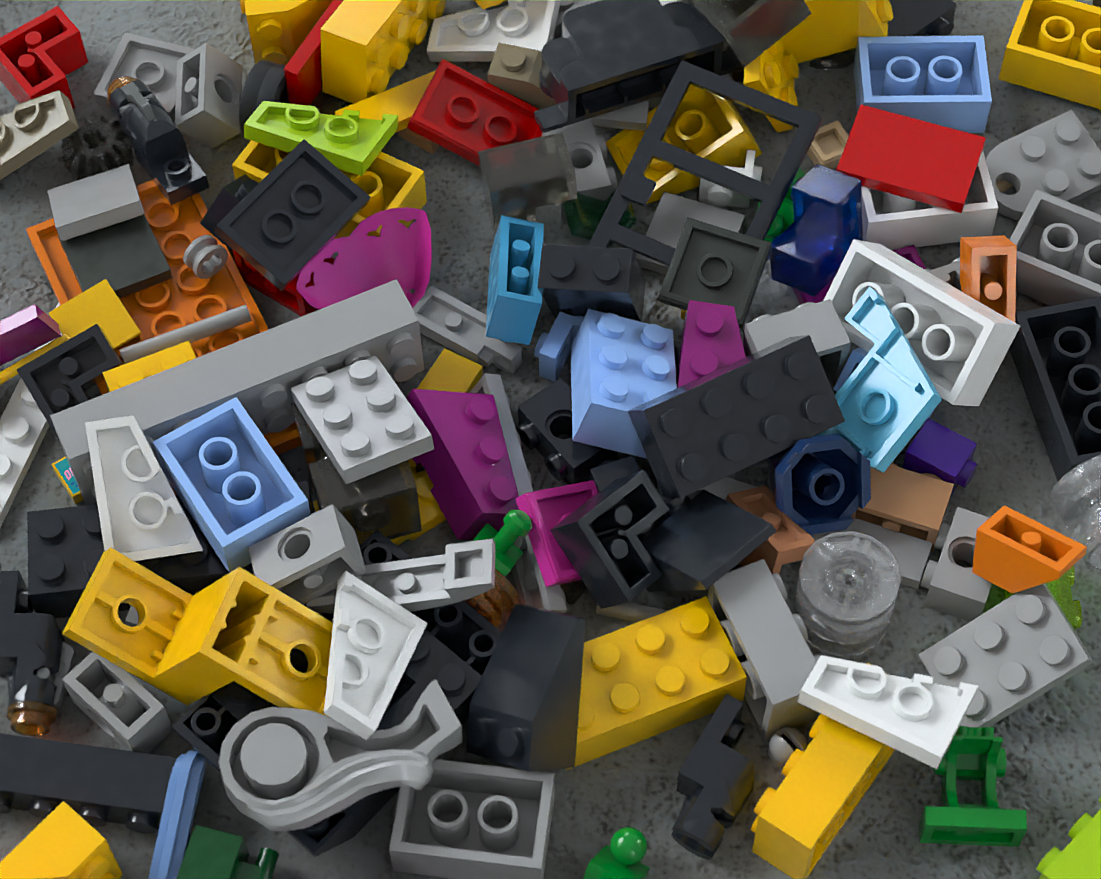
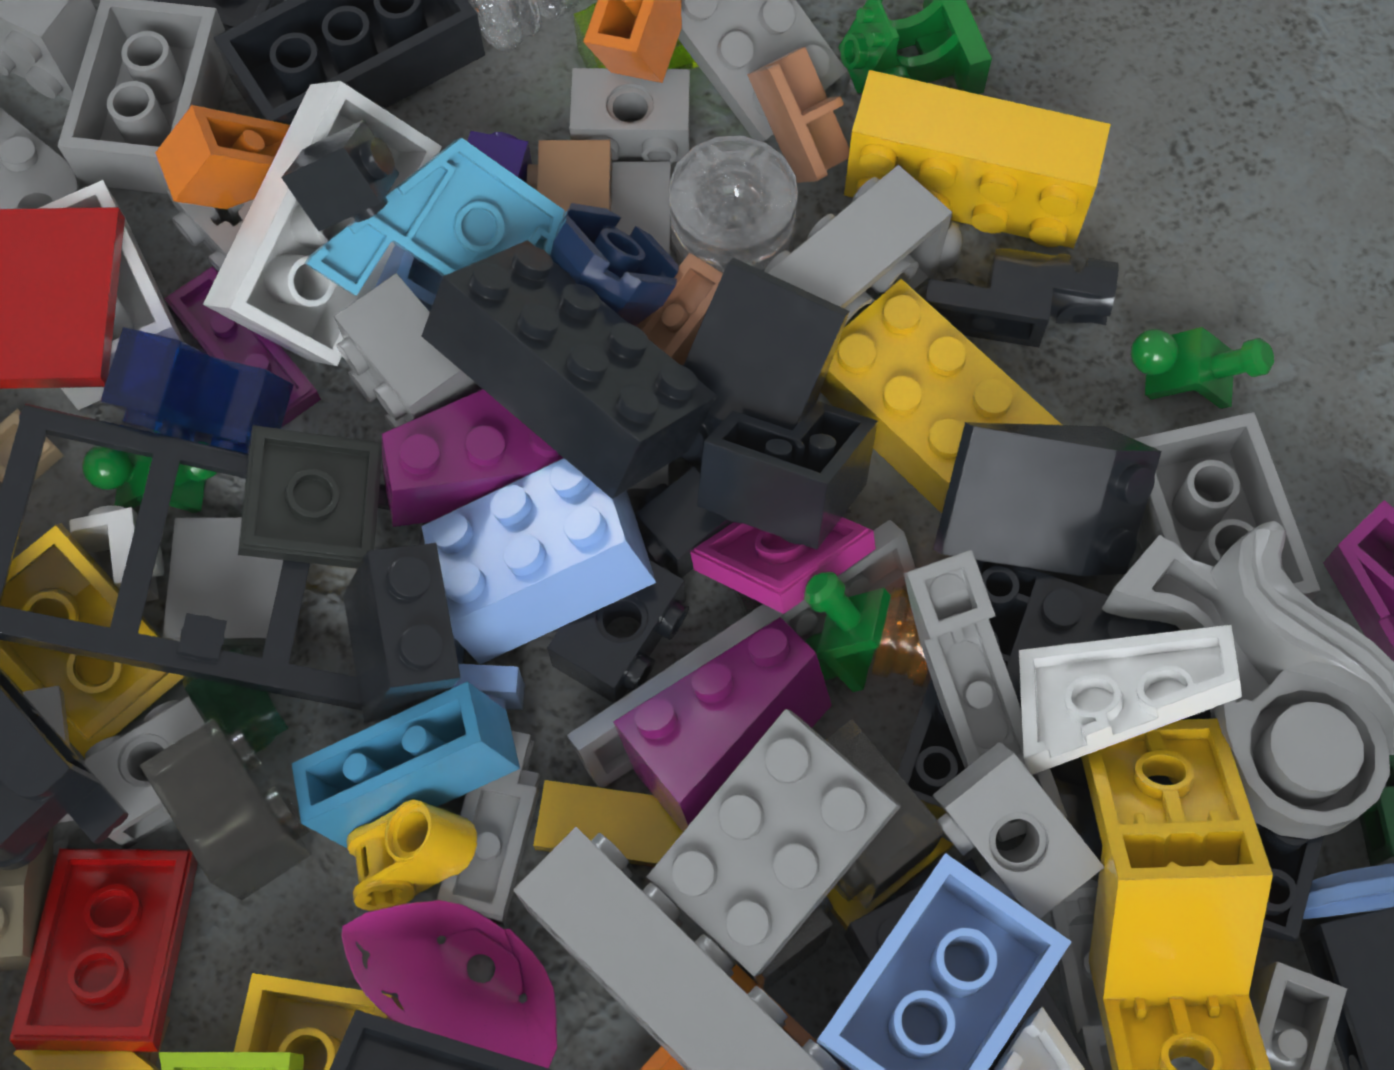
camera: 110 degrees left, 10 degrees up
(464, 277) = (408, 853): none -> yellow piece
(892, 709) = (911, 78): white wing -> none
(915, 305) = (342, 176): none -> black brick
(928, 652) = (801, 115): none -> nougat panel

